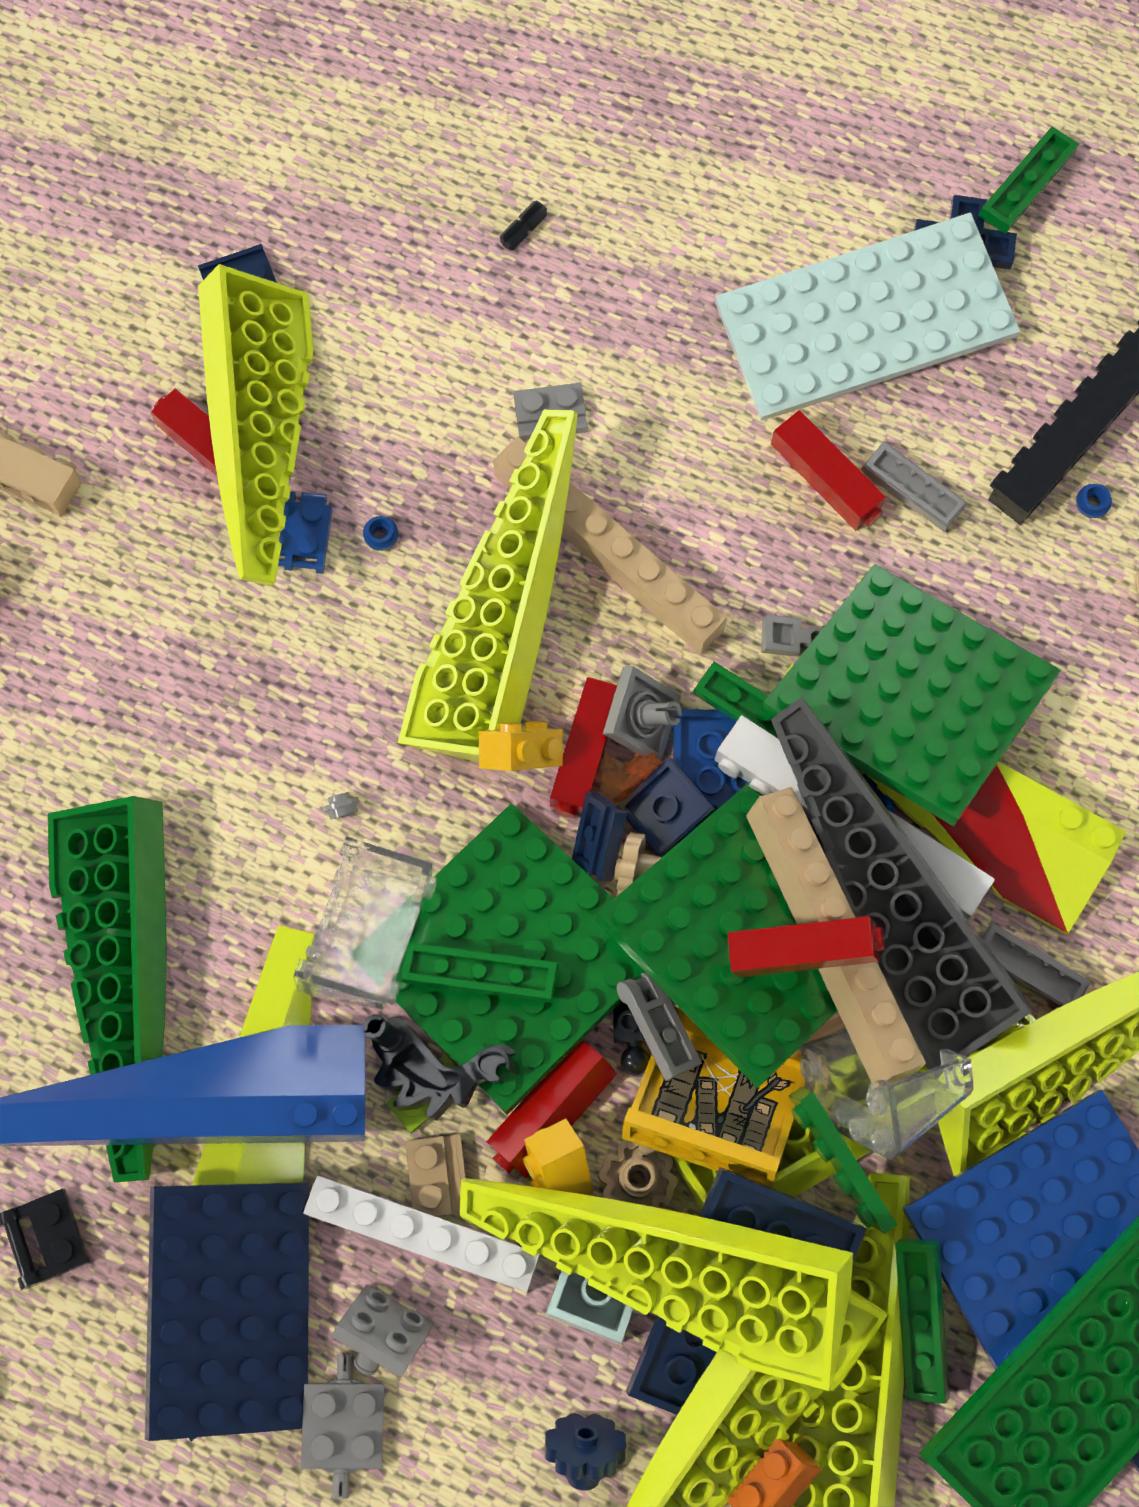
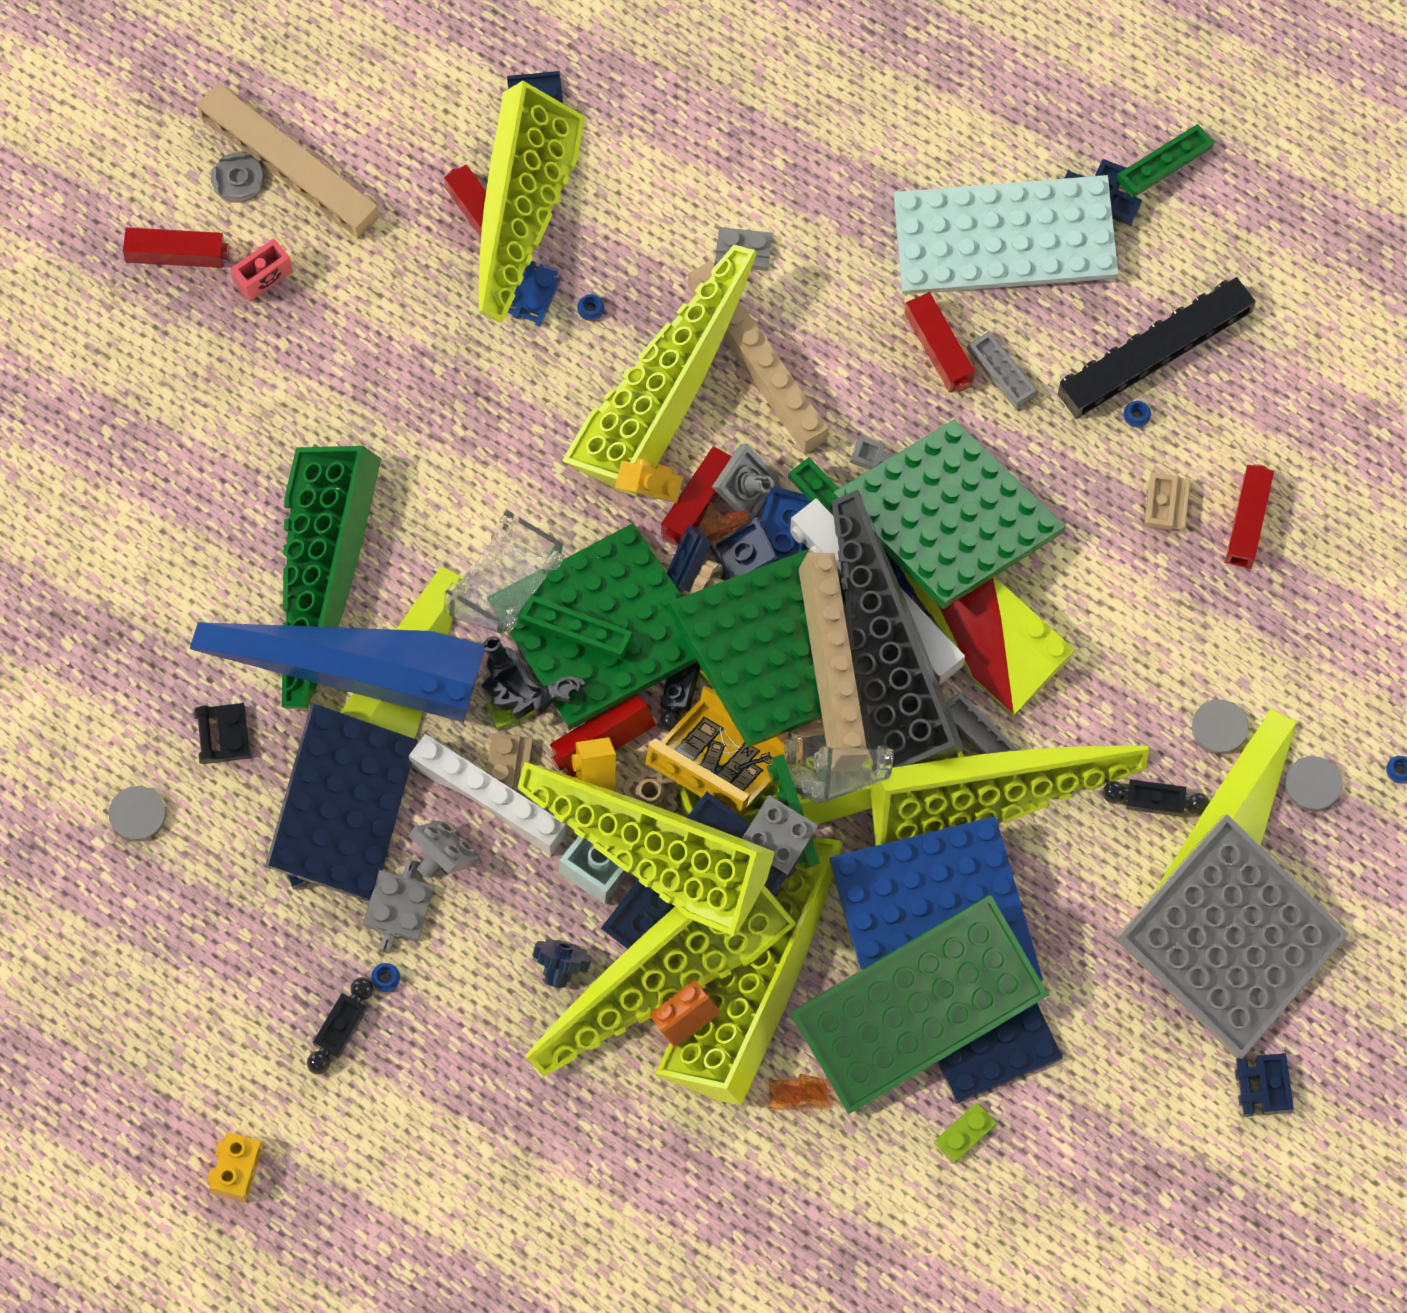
camera: 15 degrees right, 5 degrees down
(341, 805) = (509, 493): light grey plate -> none
(529, 220) = (759, 105): black piece -> none
(659, 1026) = (694, 695): light grey plate -> none
(805, 946) = (805, 655): red brick -> none
(835, 1205) = (781, 831): none -> light grey plate
(922, 1320) = (821, 936): green plate -> none

